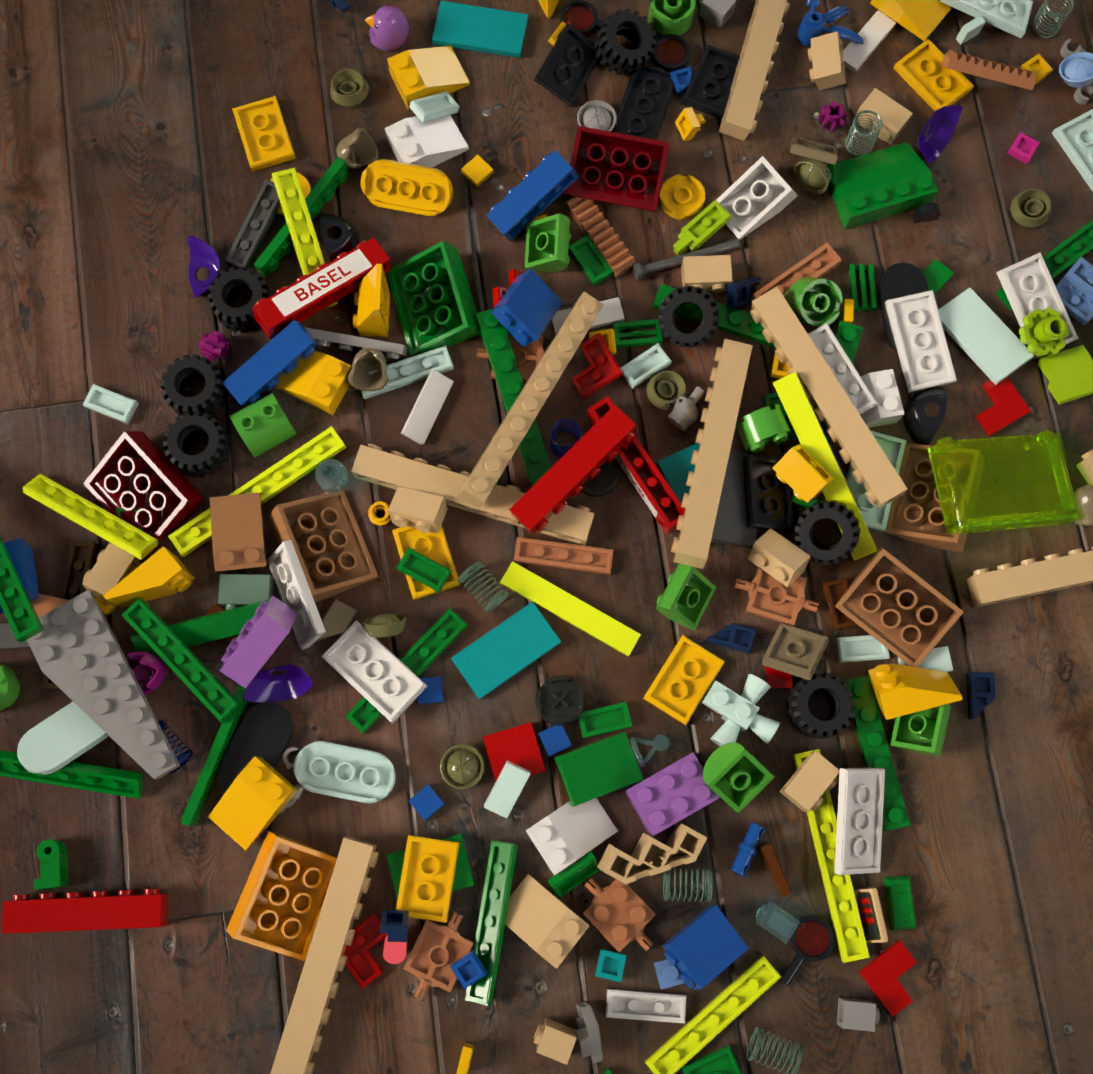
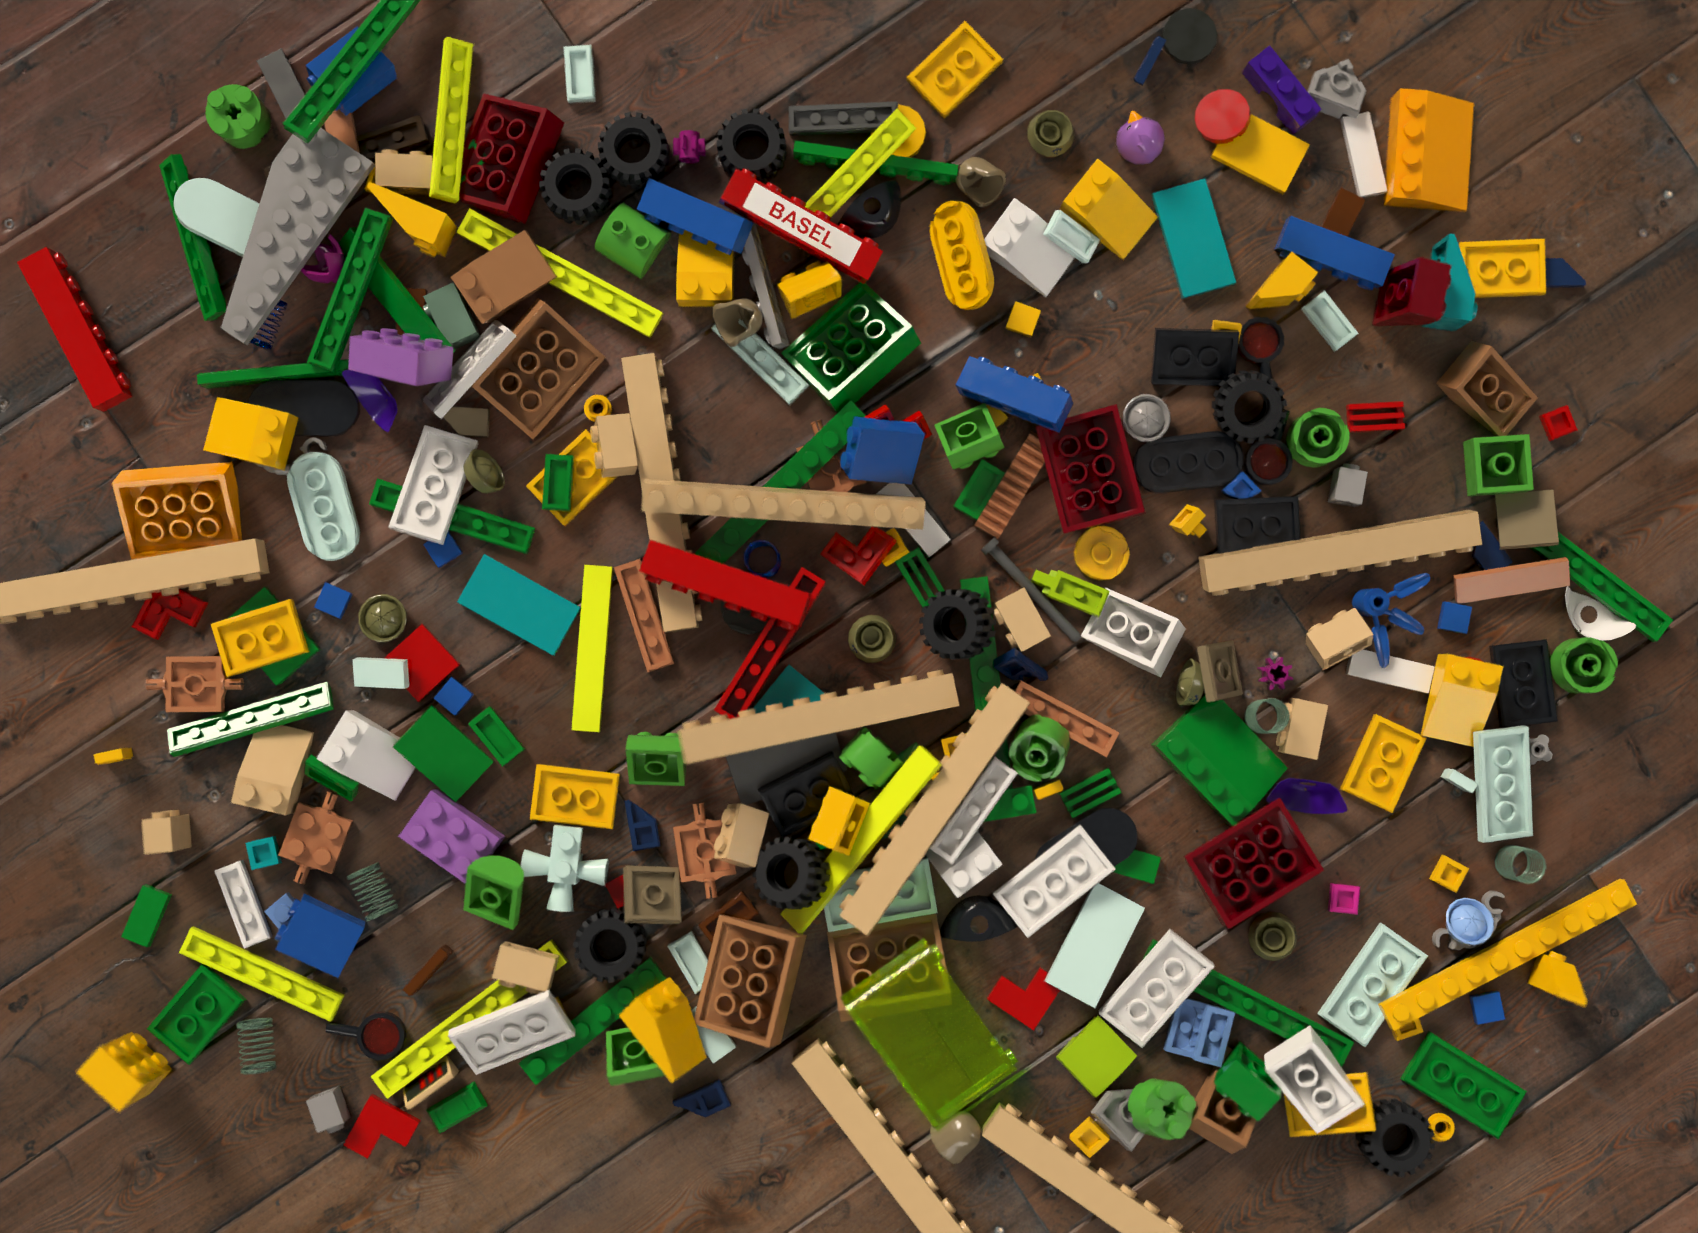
camera: 60 degrees right, 10 degrees up
(52, 865) = (103, 274): green leg -> none
(202, 256) = (782, 80): dark purple piece -> none
(329, 469) = (602, 334): clear light blue head -> none
(395, 943) = (197, 630): dark blue leg -> none
(427, 407) = (731, 399): white tile -> none
(468, 969) = (193, 719): blue tile -> none
(499, 599) = (570, 527): sand green piece -> none
(560, 700) = (493, 683): pearl dark grey tile -> none
(588, 1033) = (184, 862): light grey plate -> none
(645, 366) = (888, 603): light aqua tile -> none
(652, 856) = (381, 844): tan brick -> none
(659, 743) = (499, 801): clear light blue piece -> none
(685, 410) = (856, 668): light grey piece -> none
(747, 849) = (435, 935): blue pin -> none
(776, 921) = (379, 994): clear light blue brick -> none
(927, 213) = (1209, 824): black tile -> none
(974, 192) = (1253, 863): none -> dark red slope
(989, 70) = (1412, 821): nougat gear -> none
(1043, 332) = (1123, 1007): lime plant -> none

